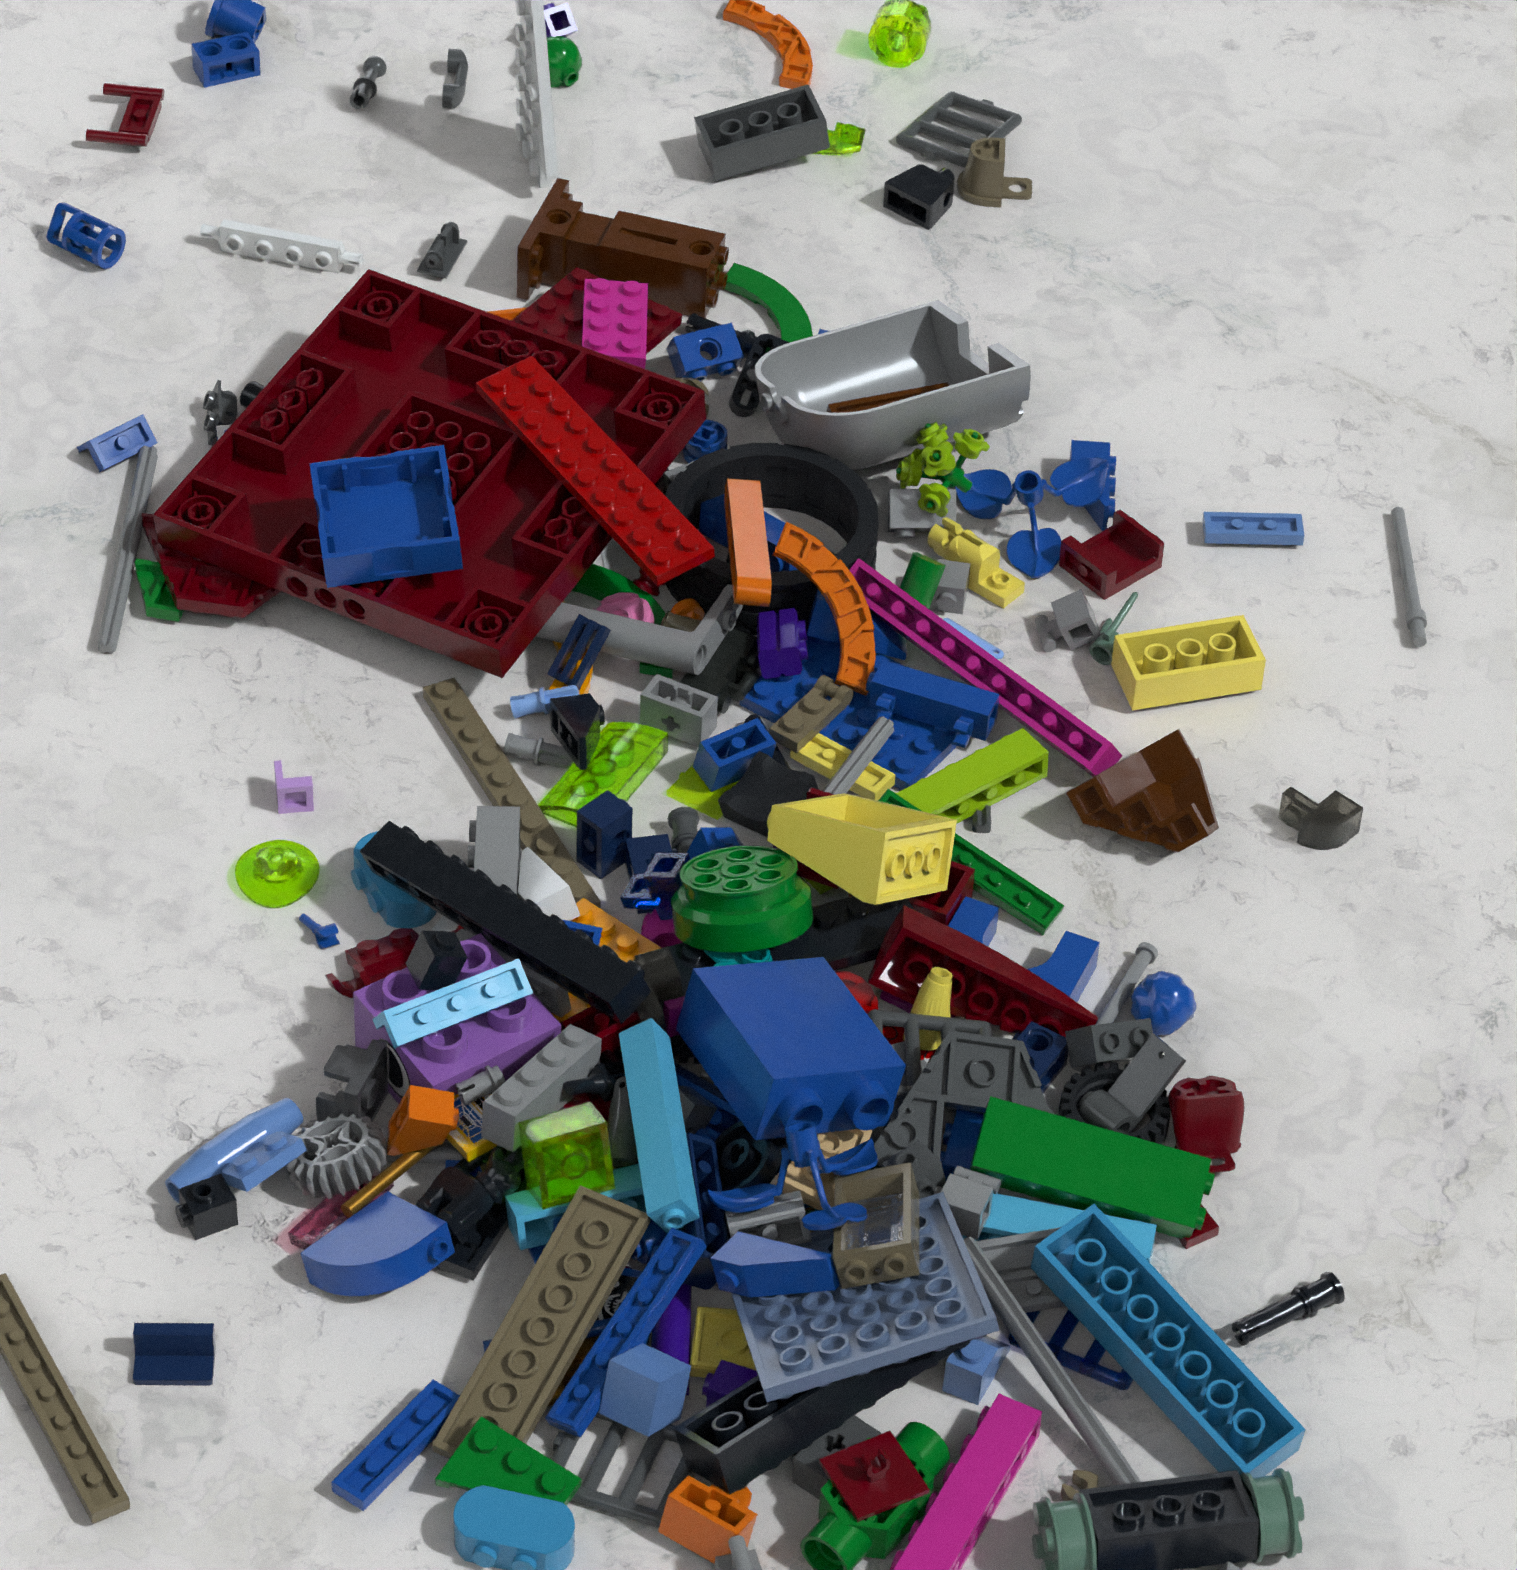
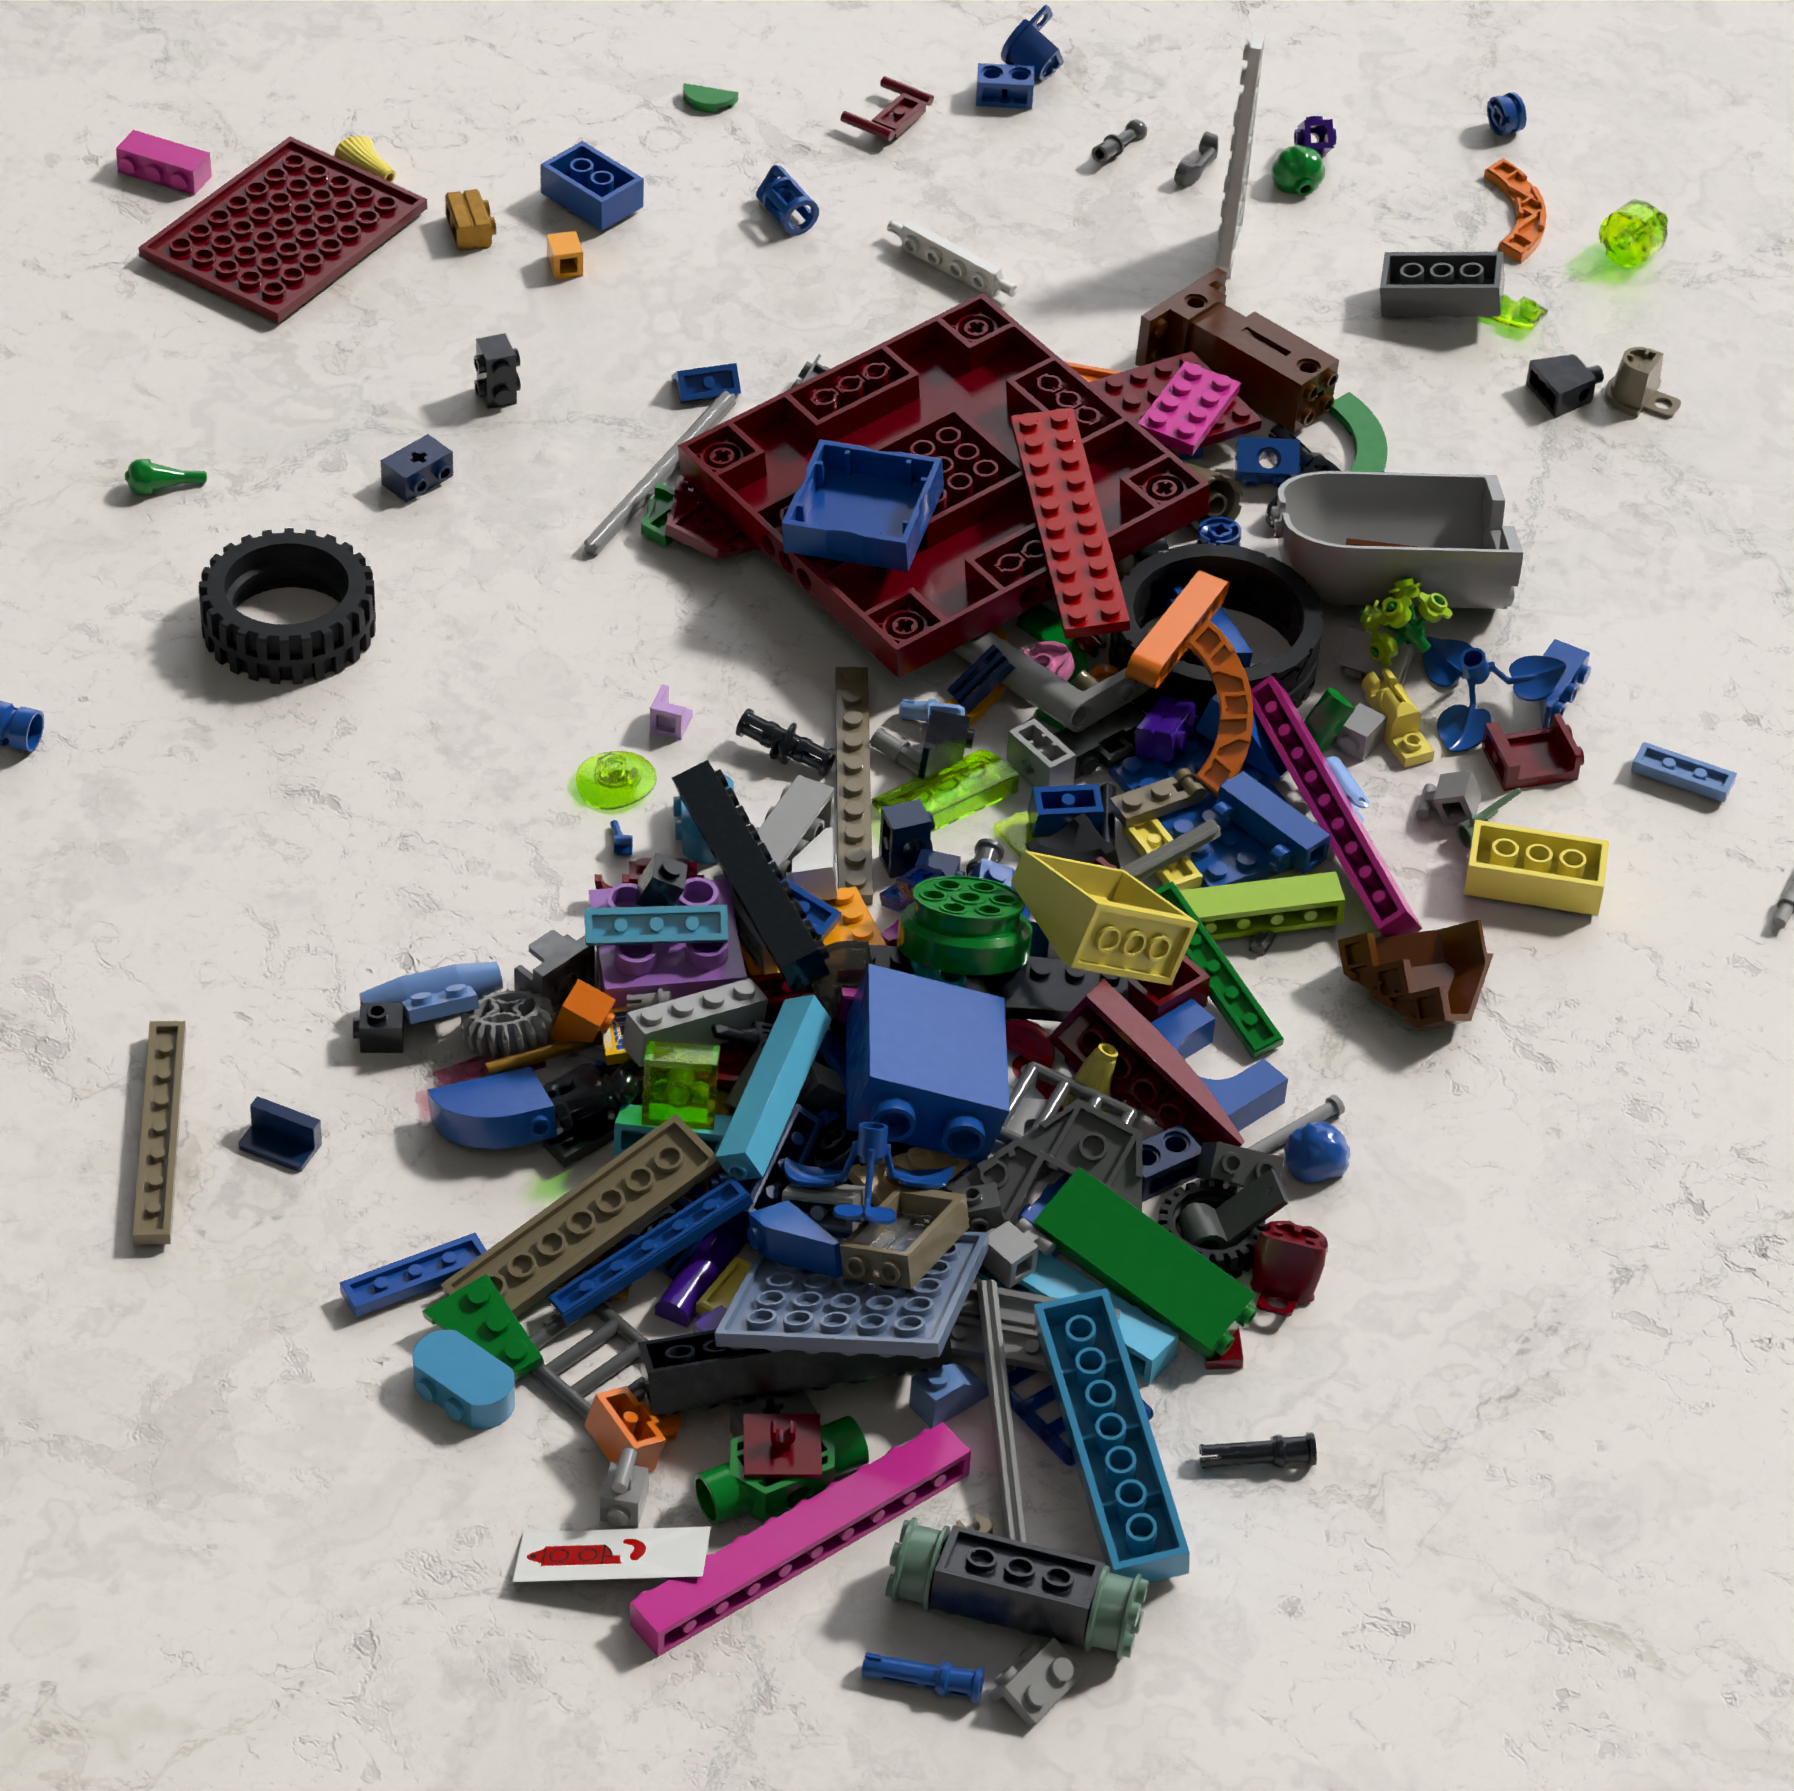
camera: 25 degrees right, 0 degrees up
(425, 778) = (786, 743): none -> black piece
(443, 252) = (1091, 305): dark grey hinge -> none
(645, 1389) = (638, 1303): medium blue head -> none
(940, 111) = (1634, 316): dark grey bar -> none
(1322, 824) = (1577, 1051): clear smoke brick -> none

